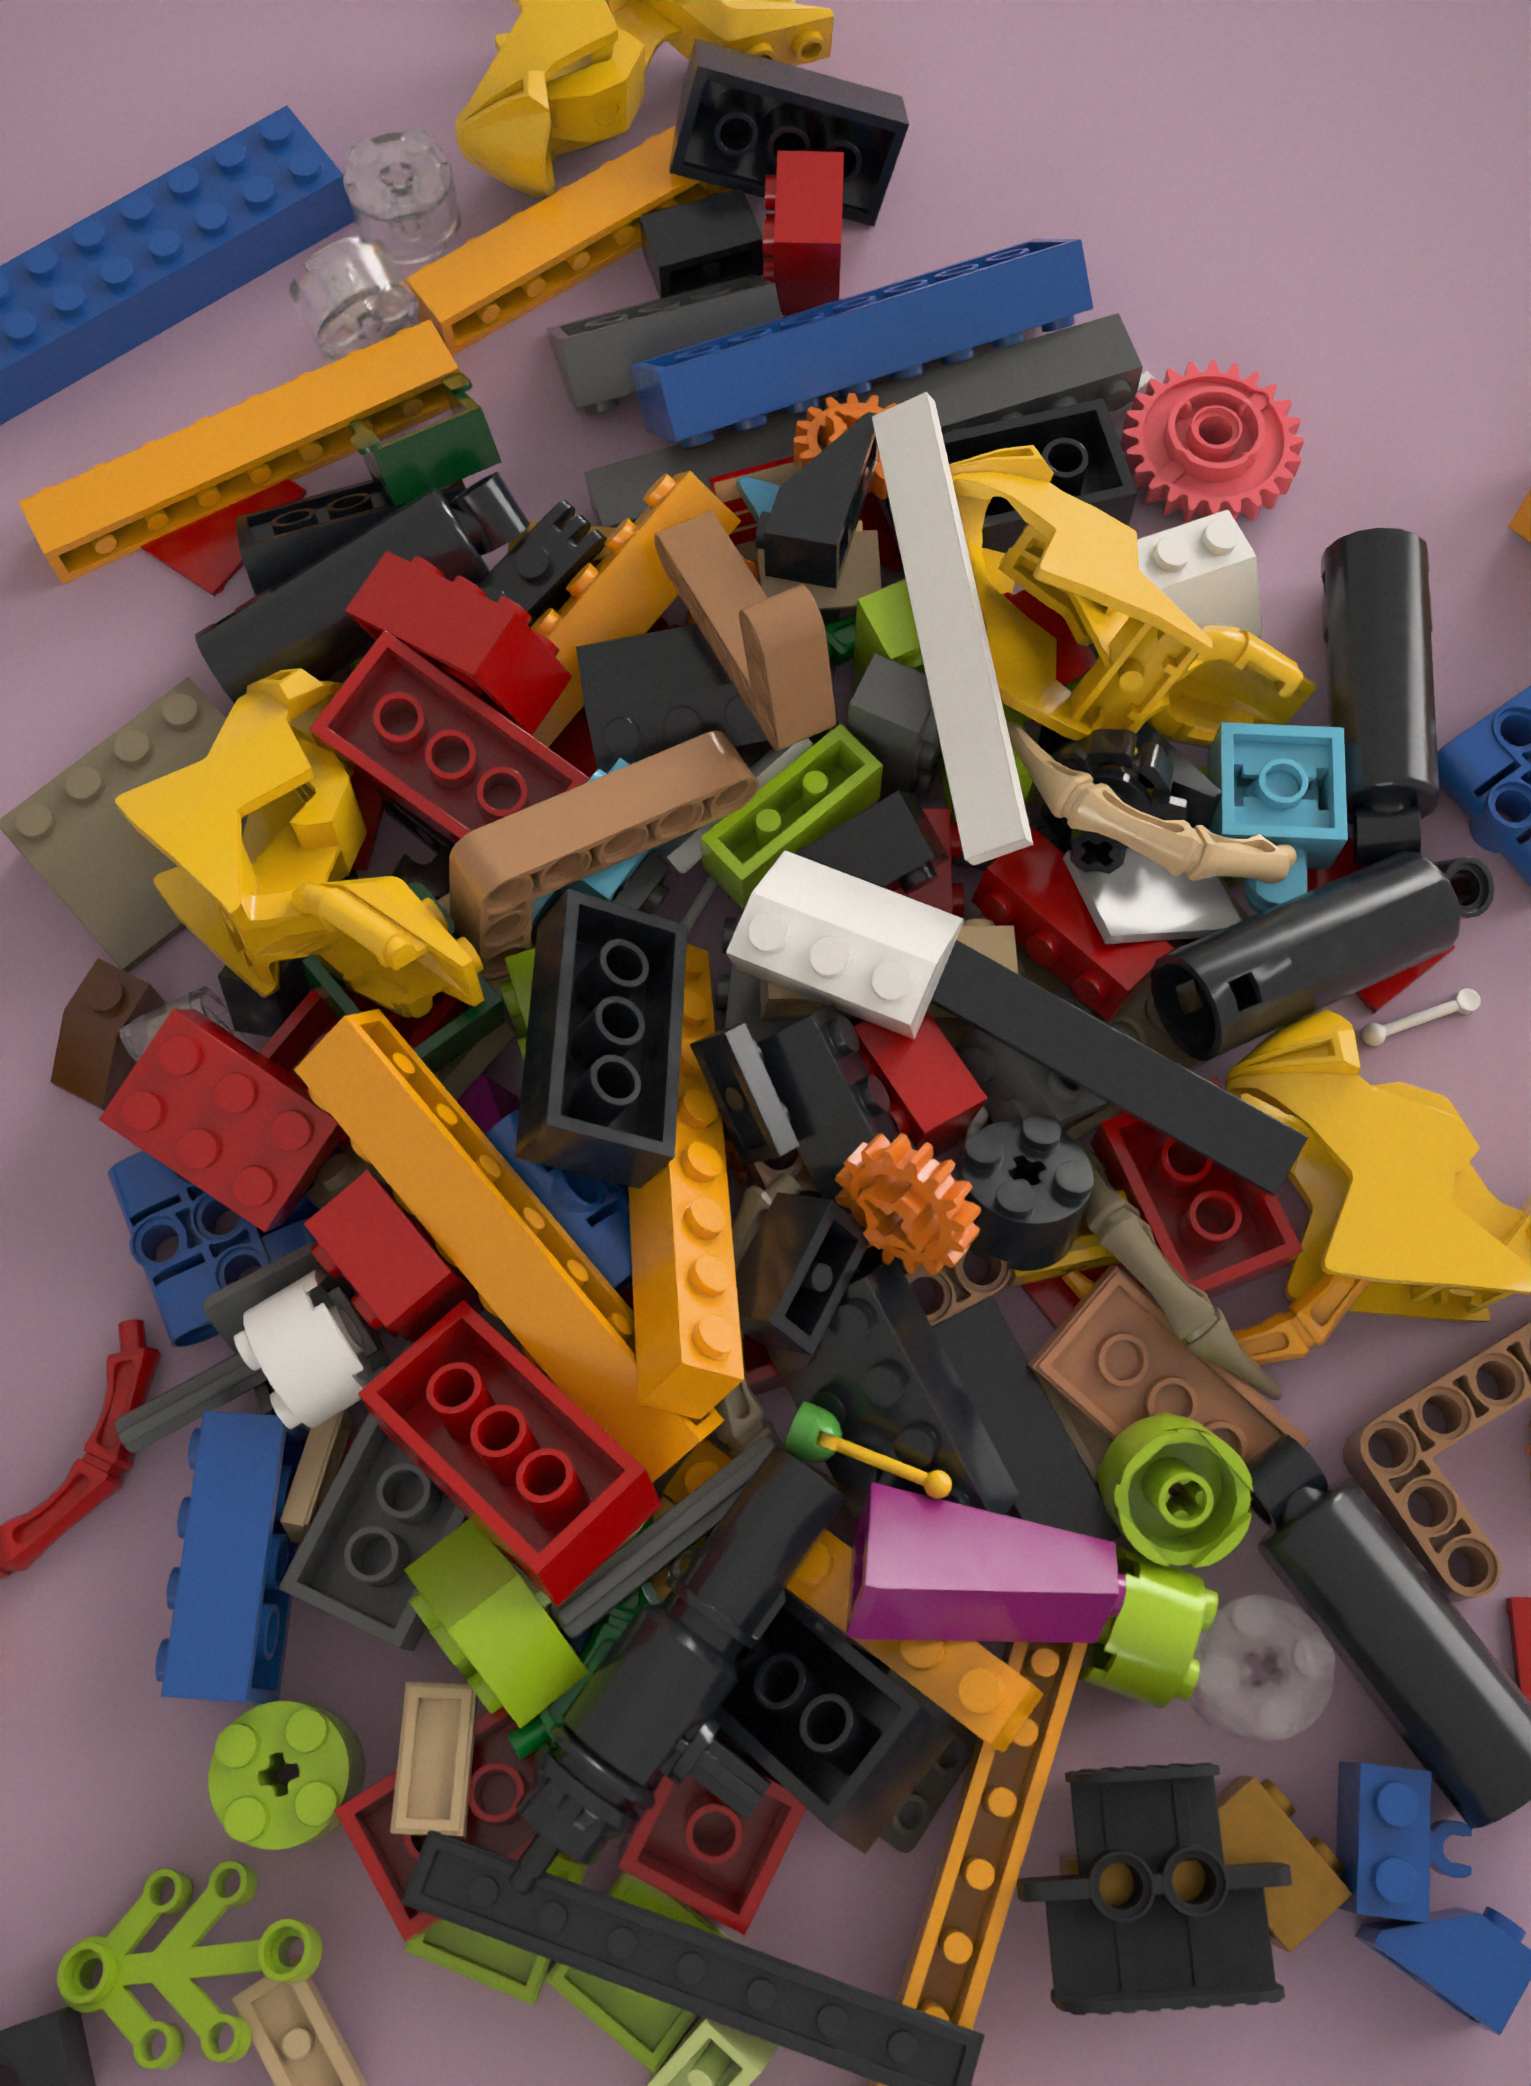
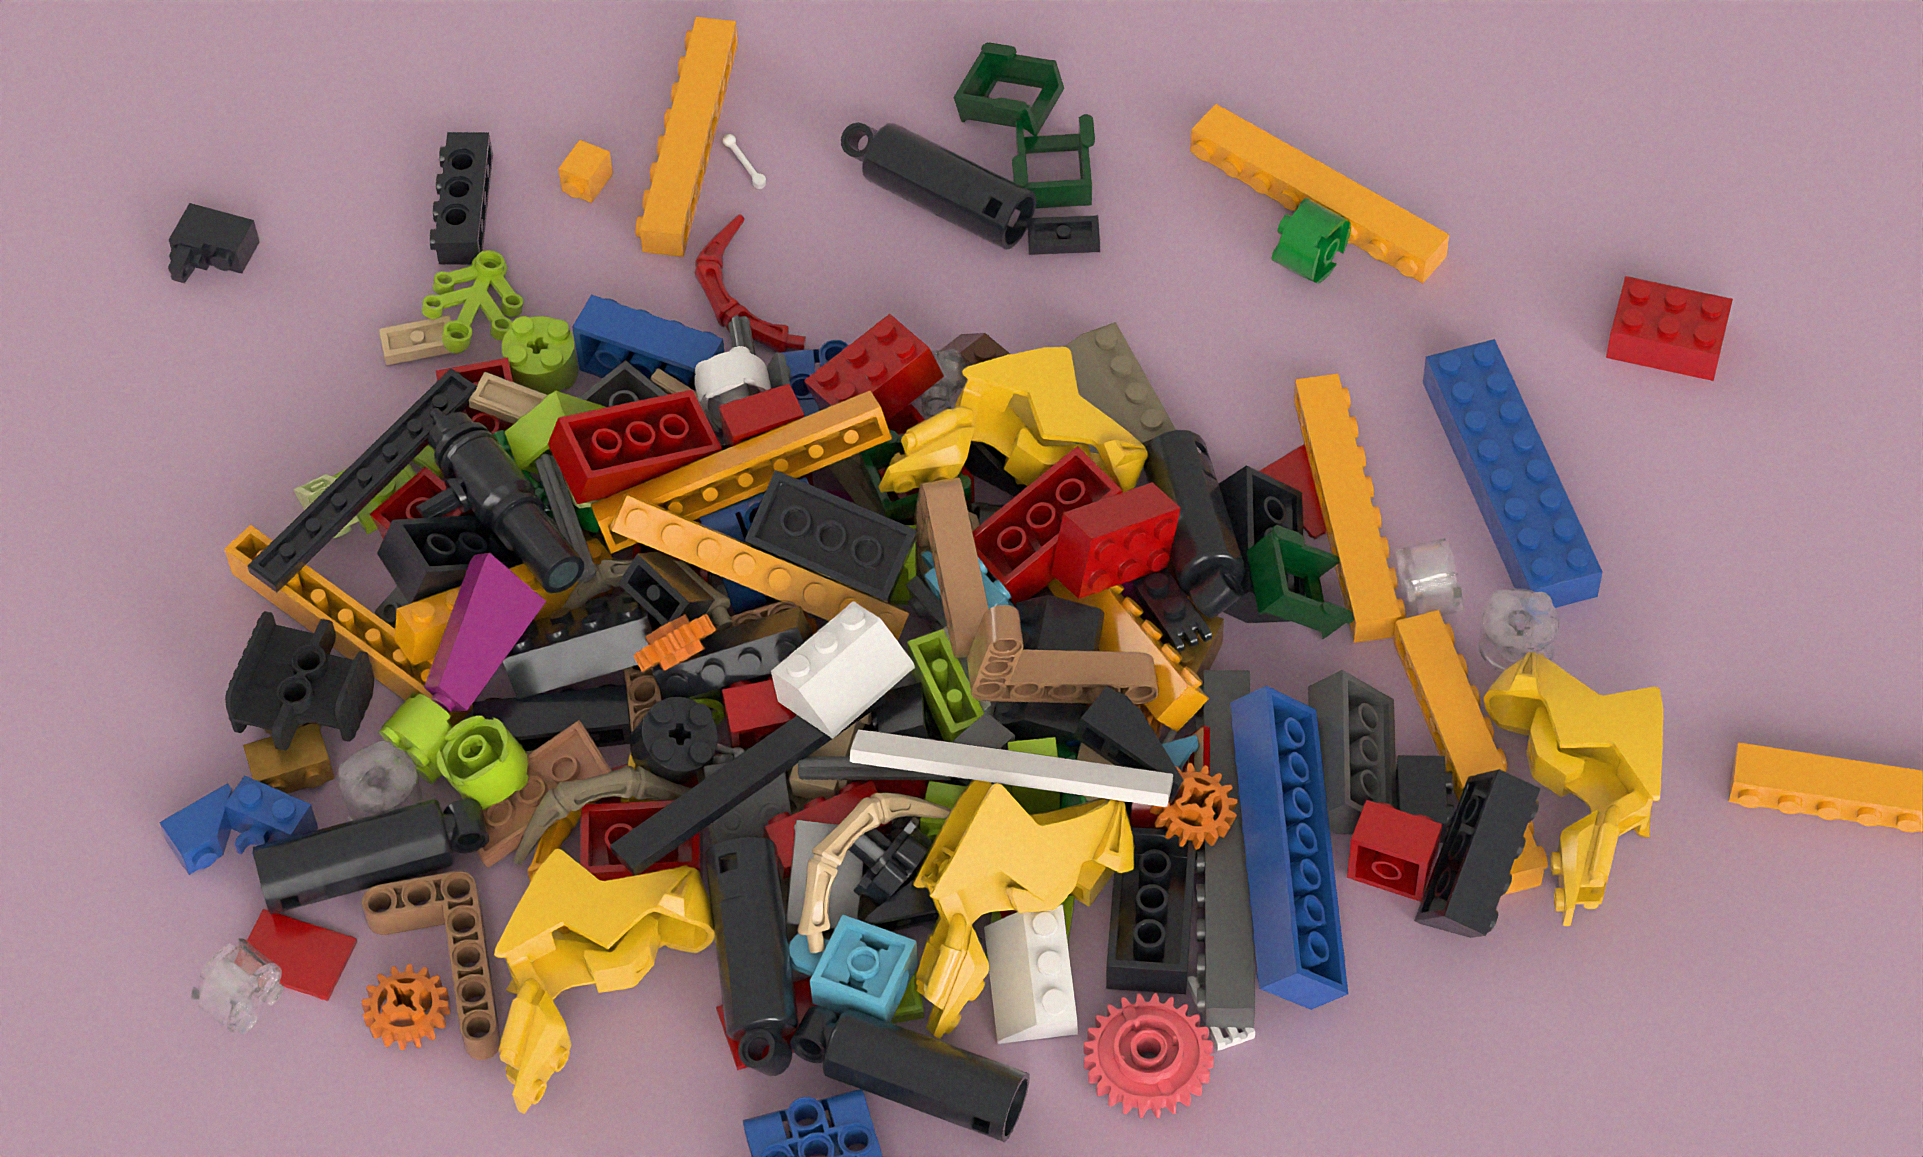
camera: 110 degrees right, 15 degrees down
(745, 1094) = (788, 595): black plate -> none
(817, 1437) = (583, 589): hinge -> none
(974, 882) = (842, 769): none -> dark grey axle
(1464, 1002) = (700, 1060): white hinge -> none

